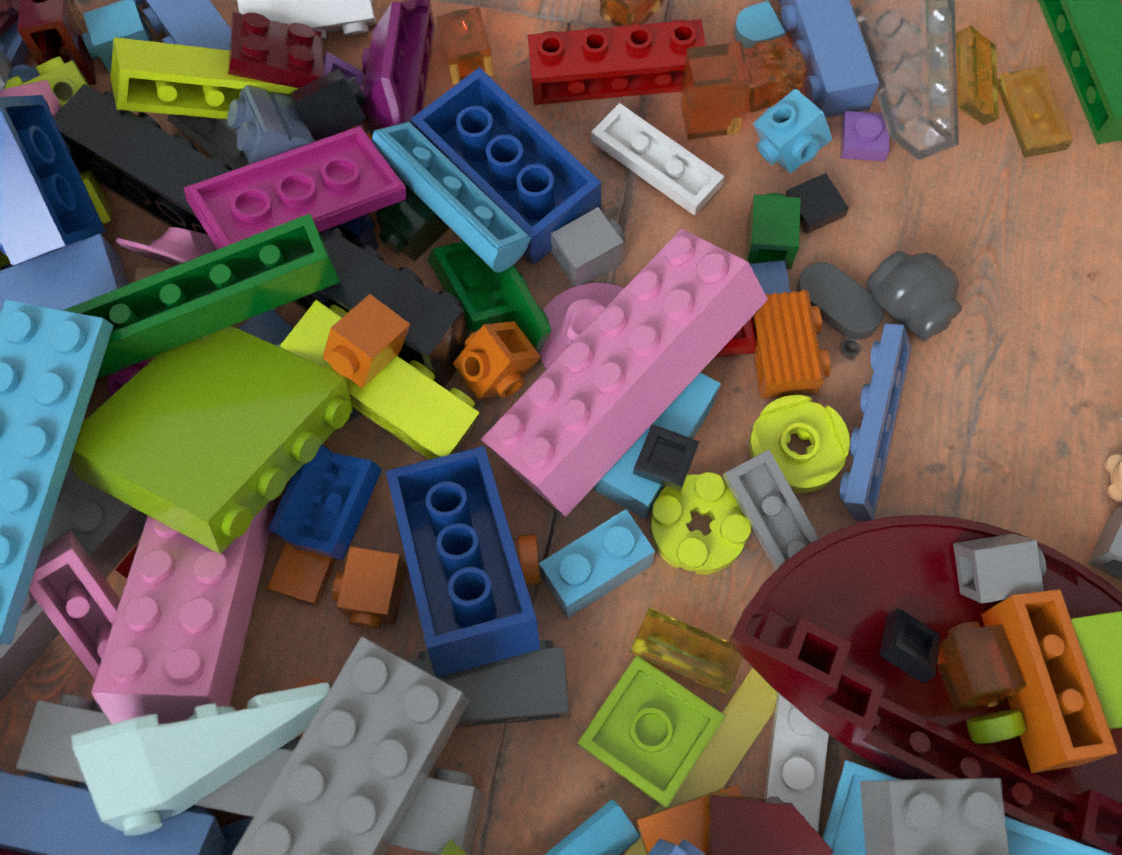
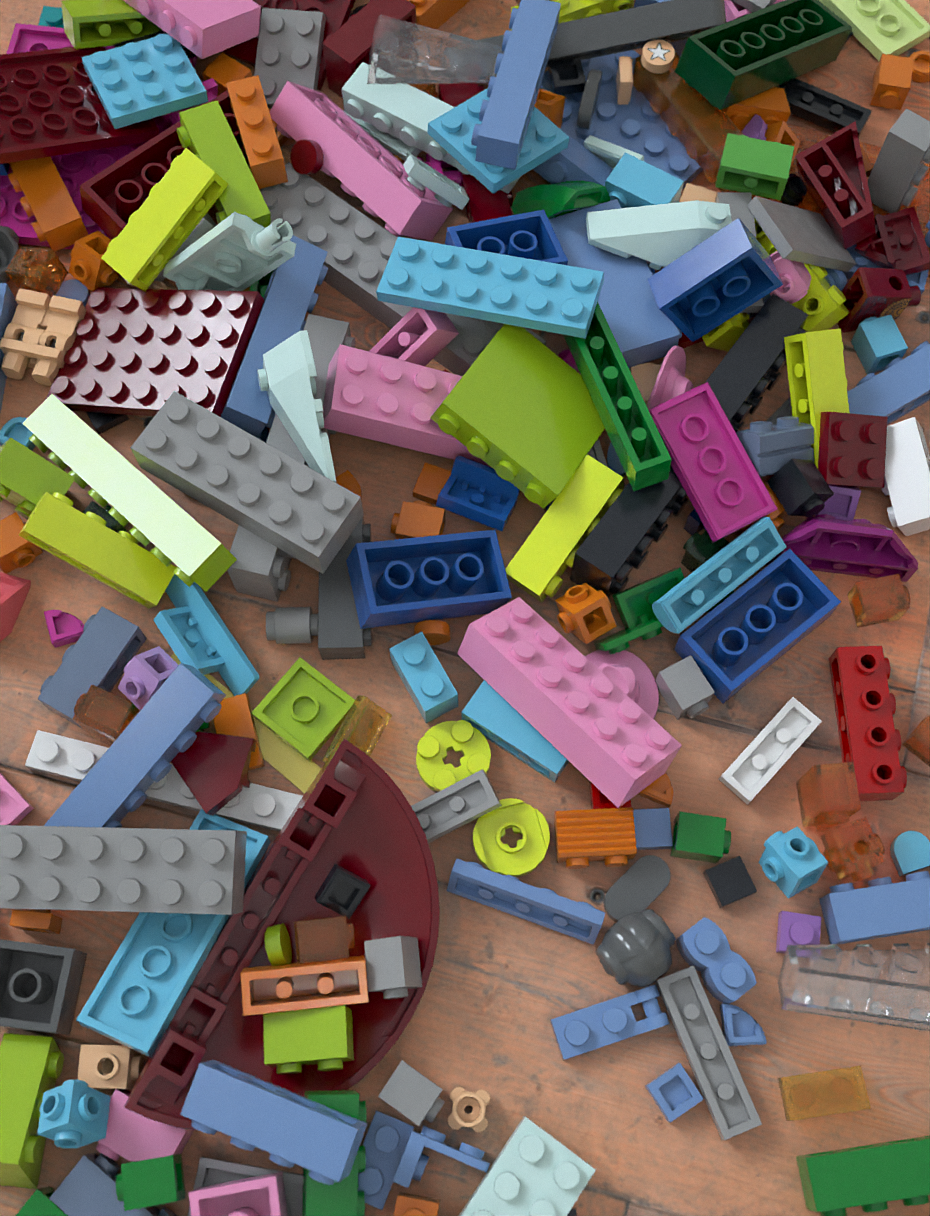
camera: 90 degrees right, 0 degrees up
(365, 341) = (582, 506): orange brick -> none
(527, 760) = (291, 625): none -> light grey brick
(666, 457) = (496, 725): black tile -> none
(916, 209) = (722, 970): none -> medium blue brick
(977, 75) = (860, 1043): clear yellow plate -> none
(978, 194) = (740, 1027): none -> medium blue tile
(1001, 330) = (607, 1022): none -> medium blue plate
(1016, 221) = (708, 1053): none -> light grey plate
(1062, 258) = (674, 1092): none -> medium blue tile

